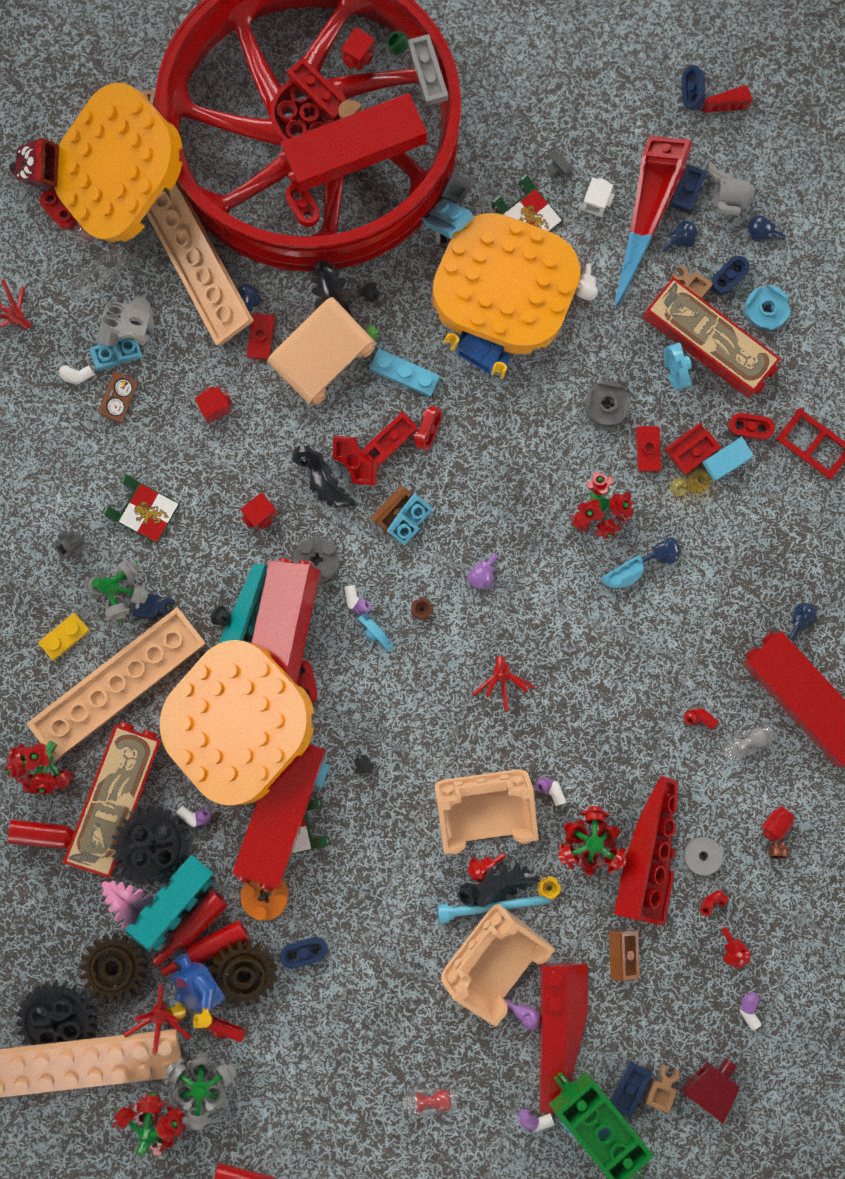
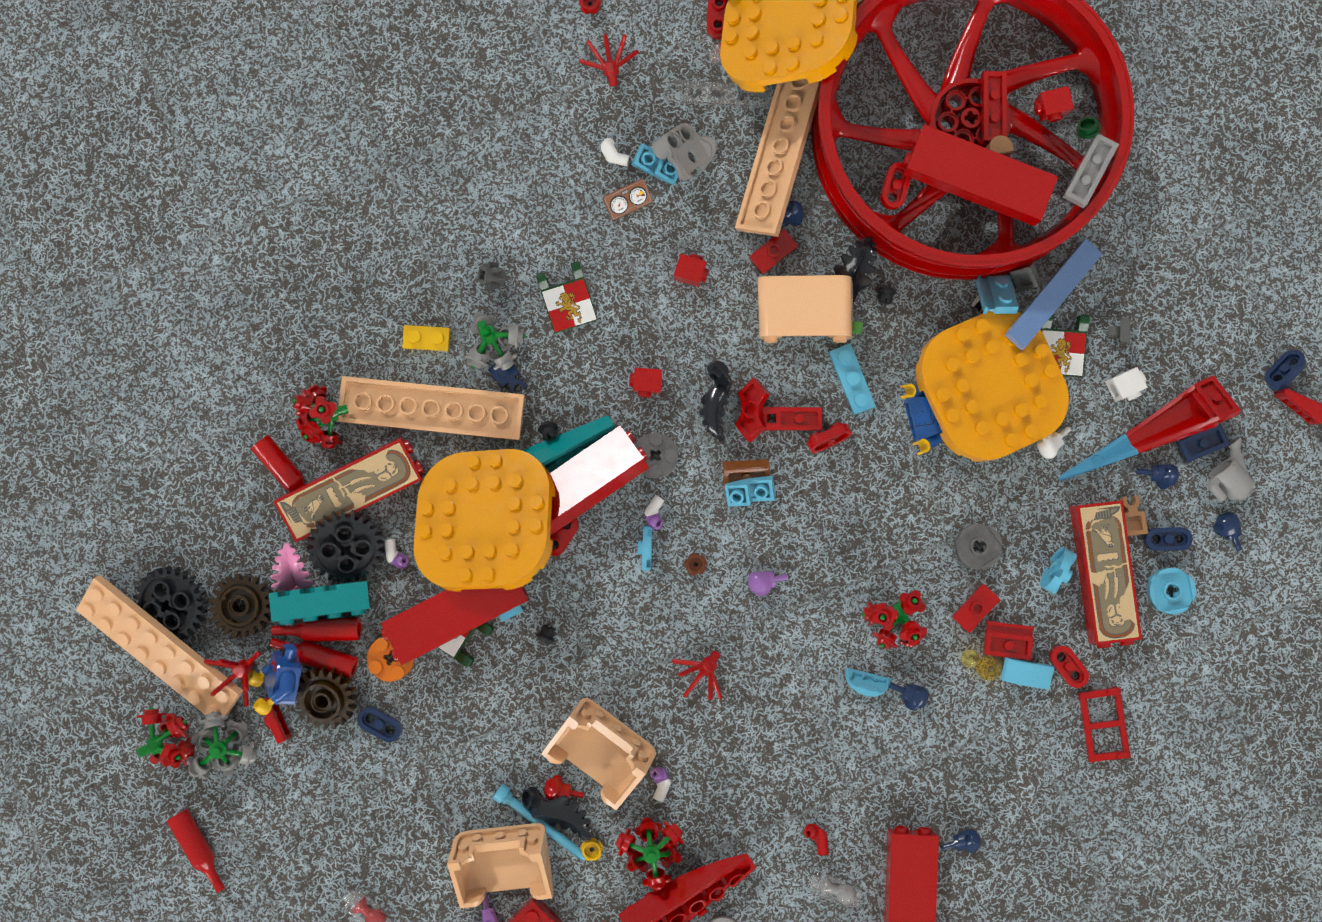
camera: 50 degrees right, 5 degrees up
(486, 182) = (1053, 294): none -> medium blue tile

